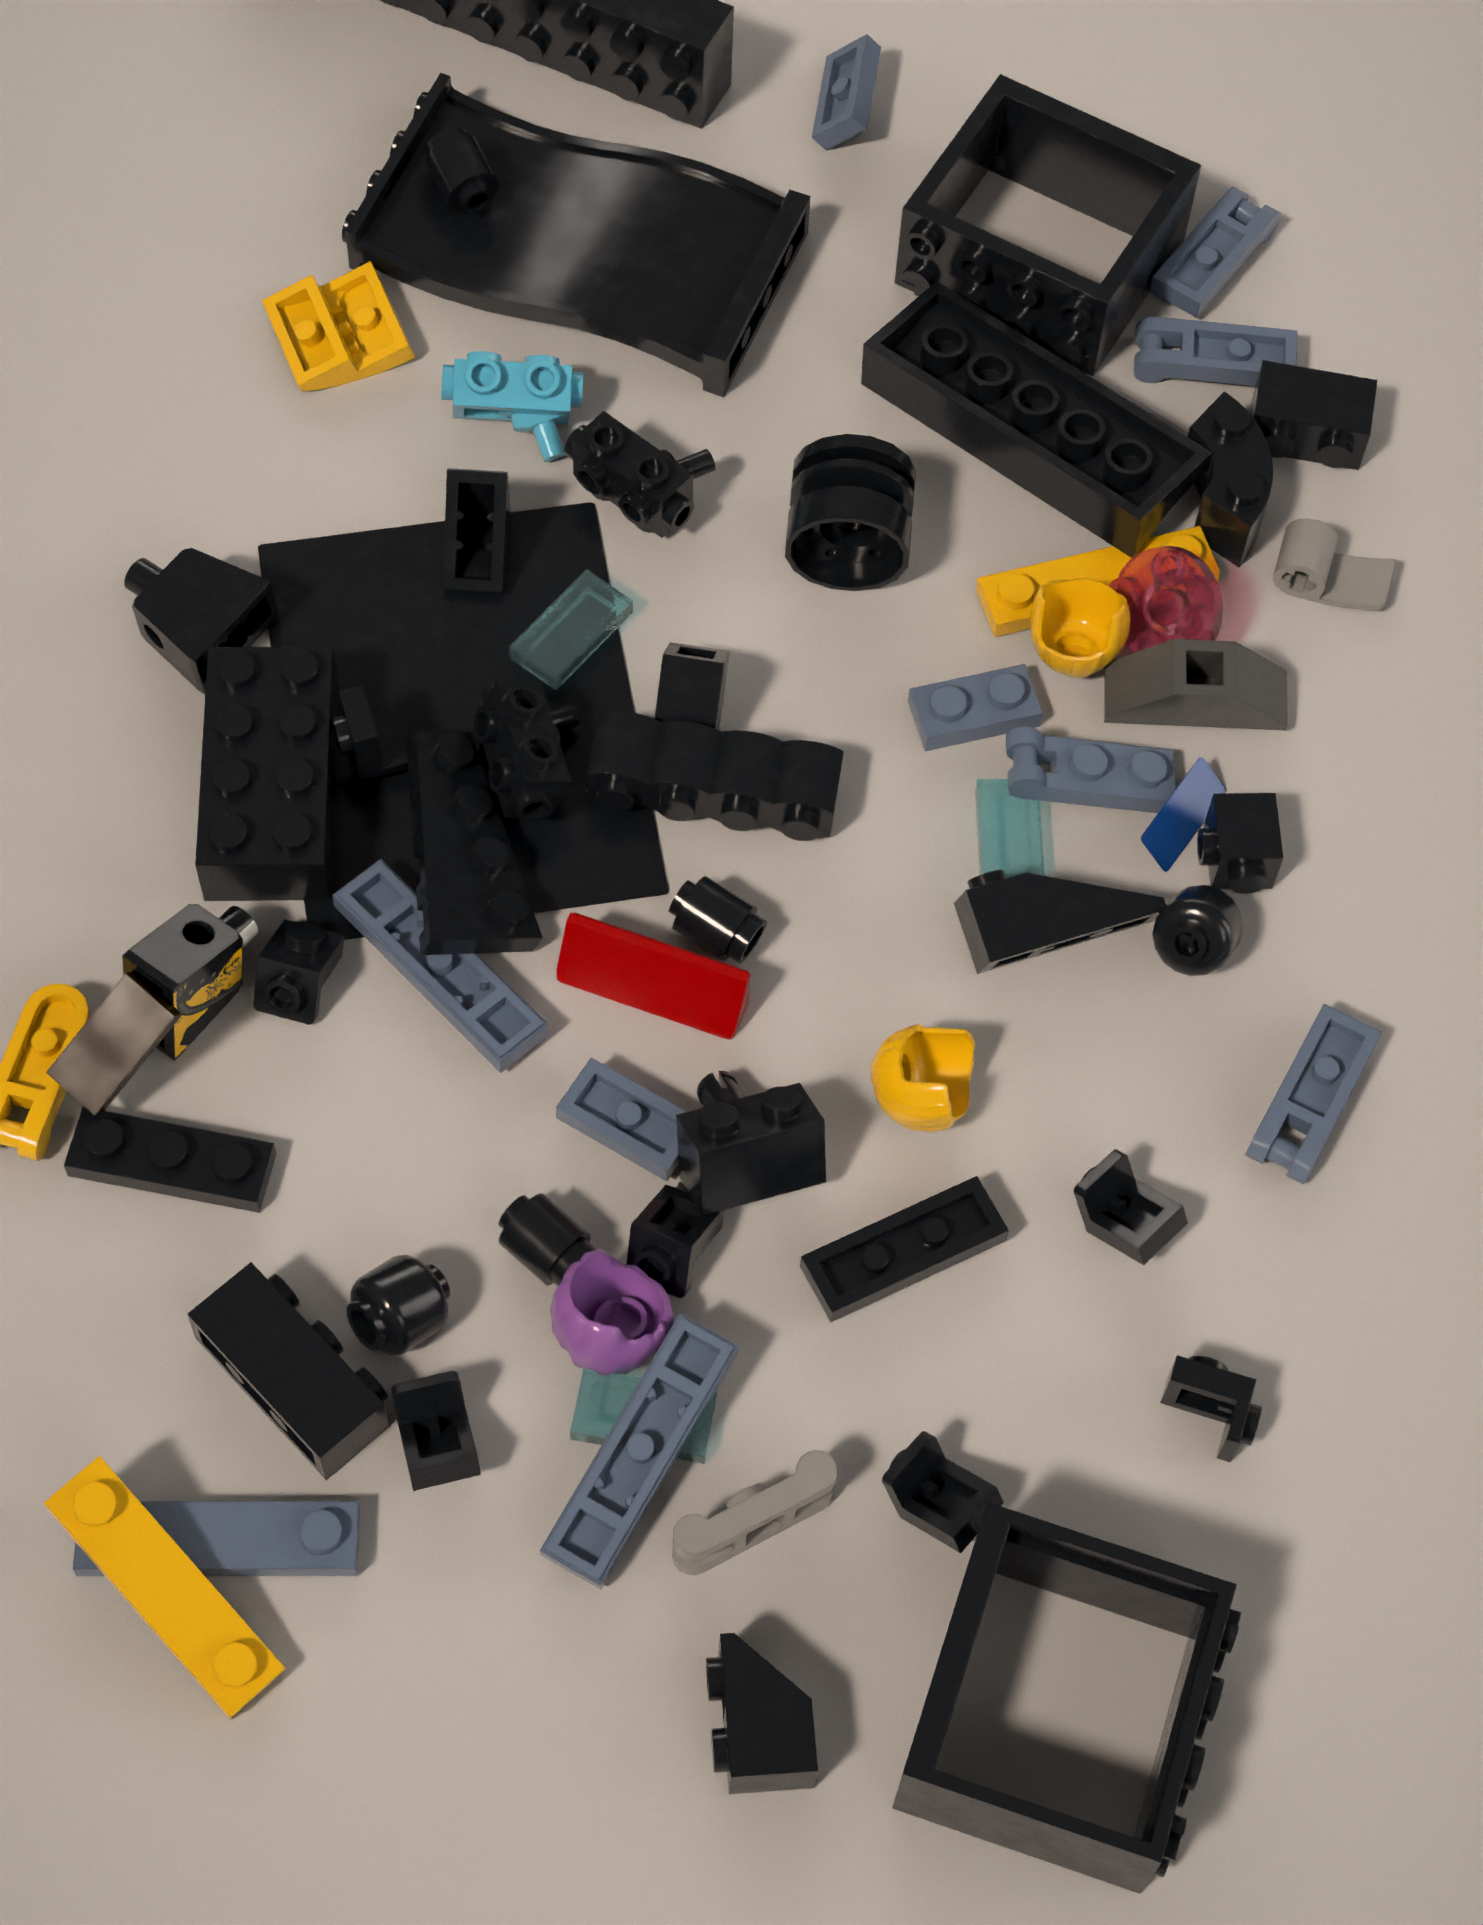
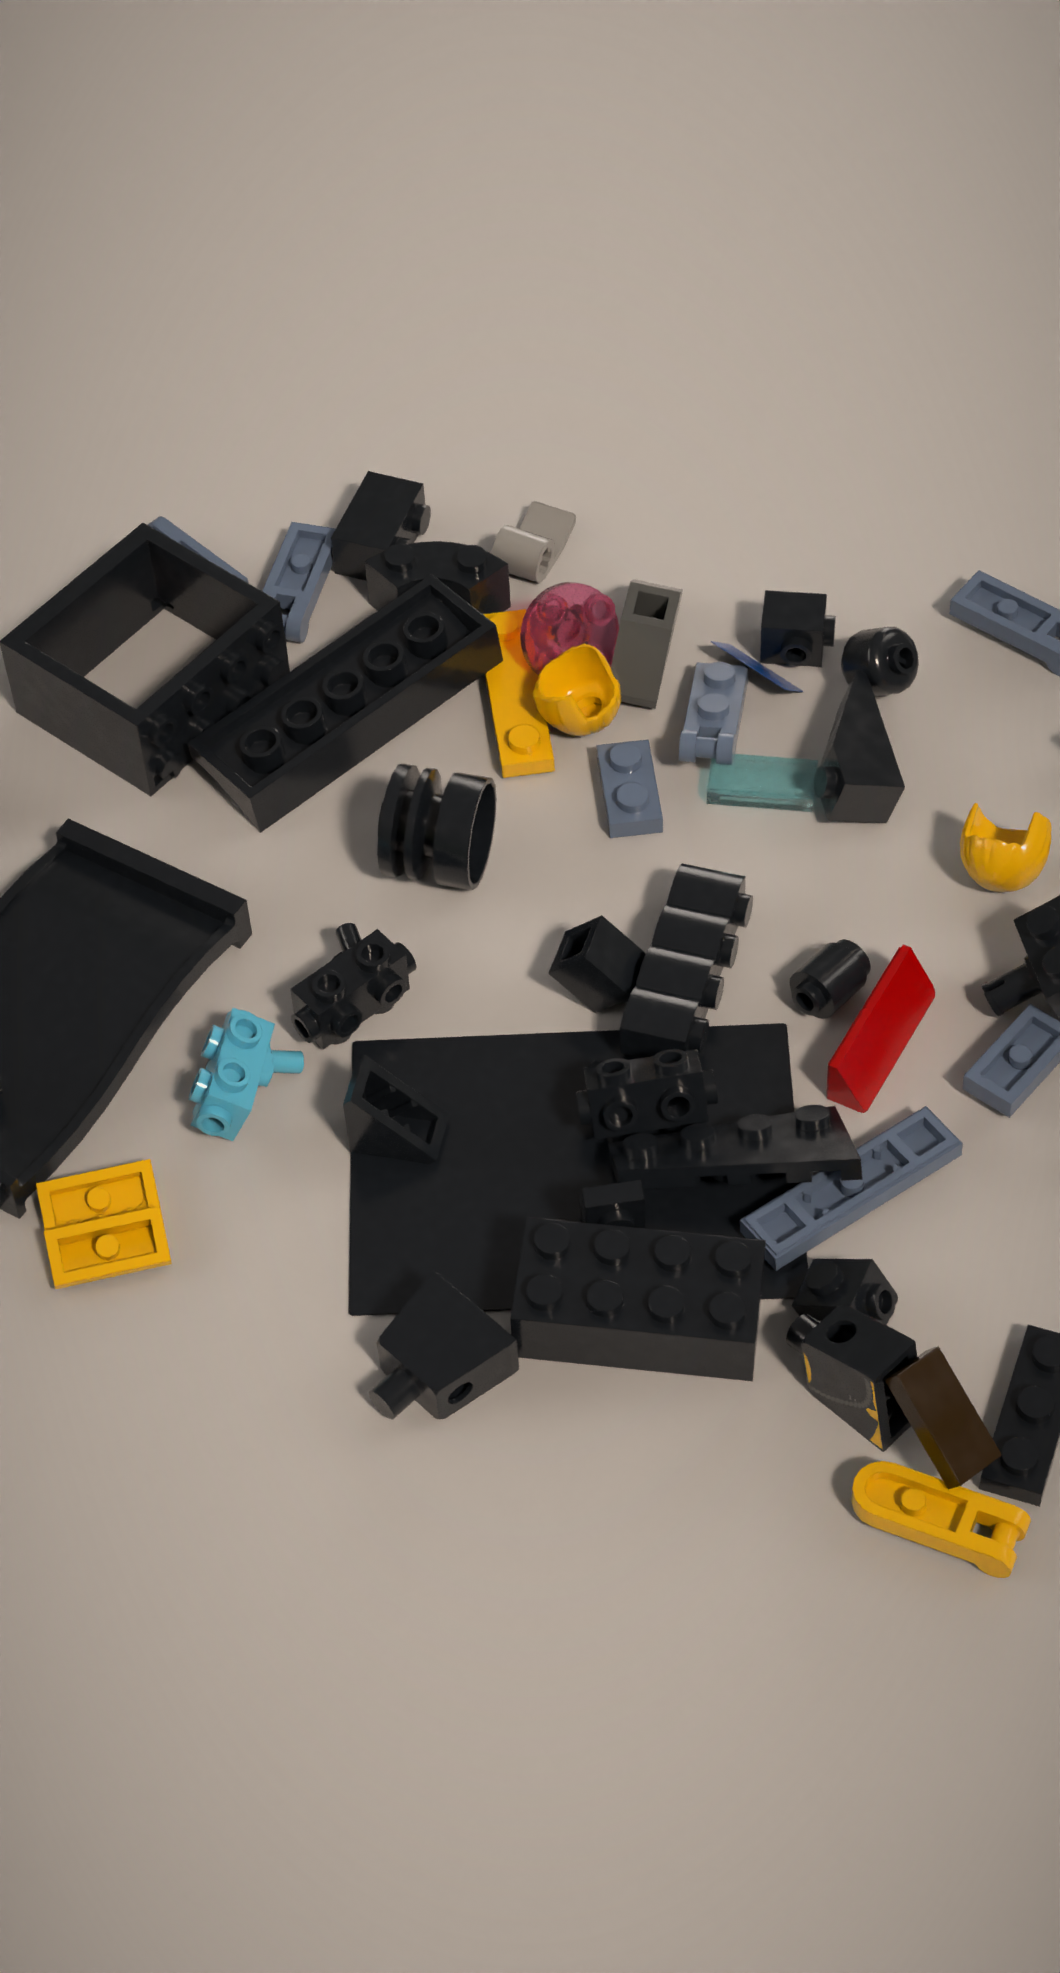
camera: 75 degrees left, 10 degrees down
(571, 629) = (503, 1062): clear light blue tile -> none

